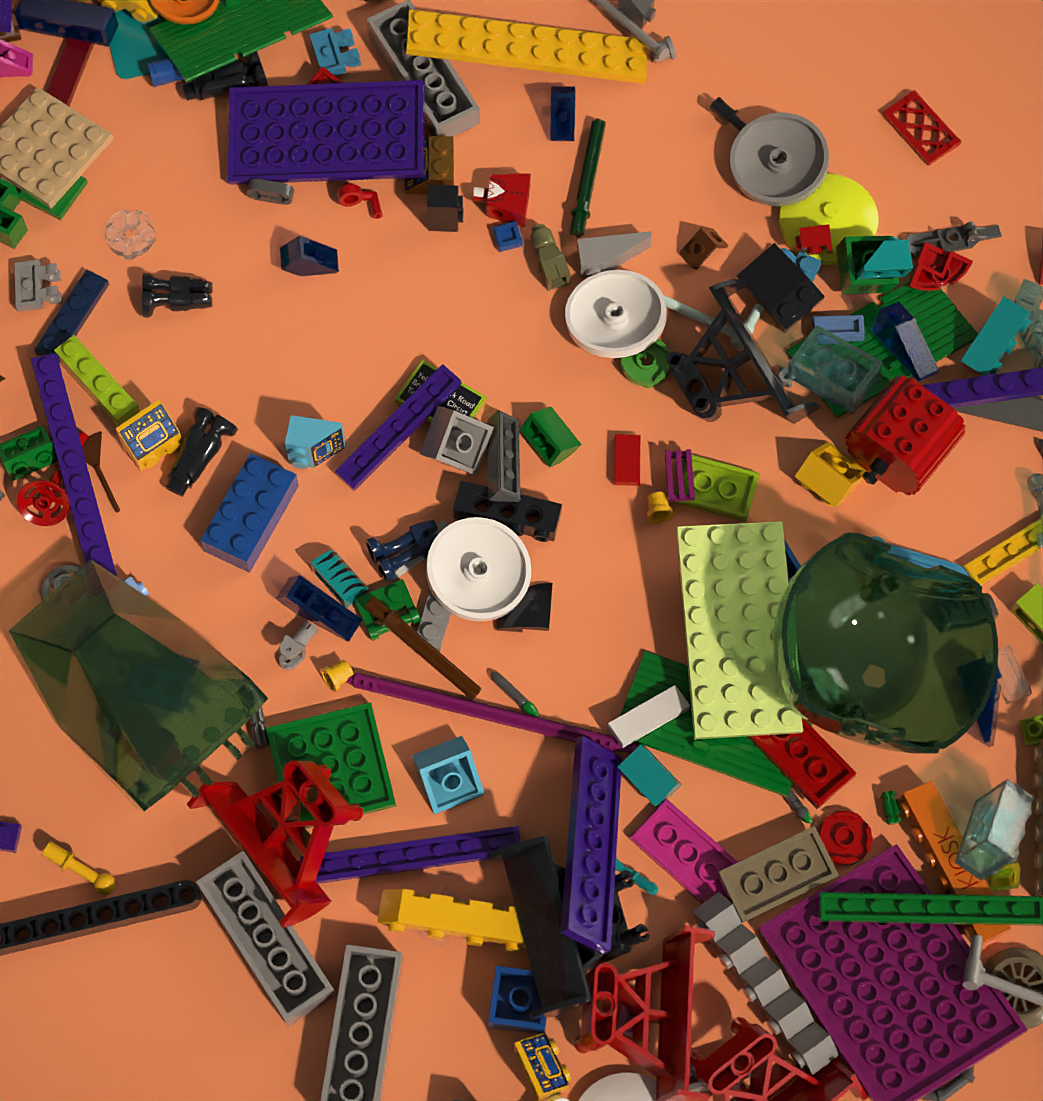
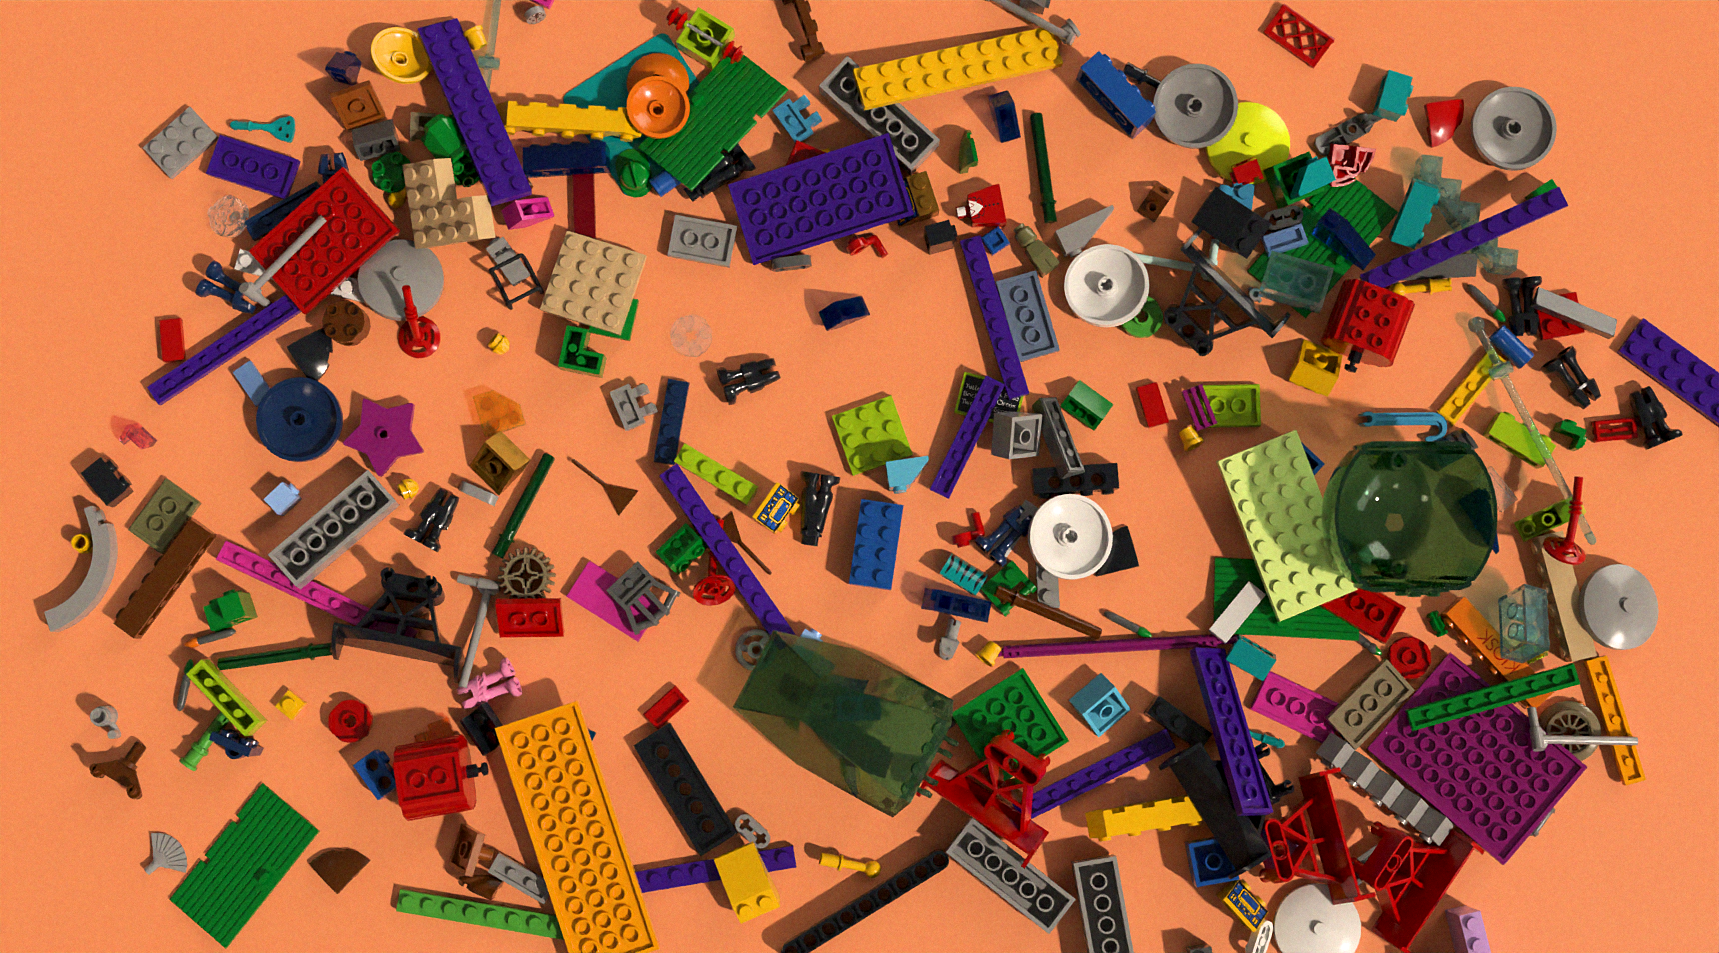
camera: 15 degrees left, 15 degrees up
(133, 55) = (633, 173): none -> green piece
(181, 142) = (702, 241): none -> light grey plate
(289, 390) = (872, 435): none -> lime plate
(353, 537) = (963, 538): none -> red plate
(477, 314) = (994, 317): none -> dark purple plate
(507, 136) = (967, 153): none -> green brick
(515, 323) = (1027, 316): none -> sand blue plate
(532, 818) = (1177, 722): none -> black brick
(693, 122) = (1116, 94): none -> blue brick
(844, 304) = (1282, 214): none -> dark grey beam
(998, 427) = (1432, 286): none -> yellow pin
(1009, 213) = (1393, 95): none -> teal brick

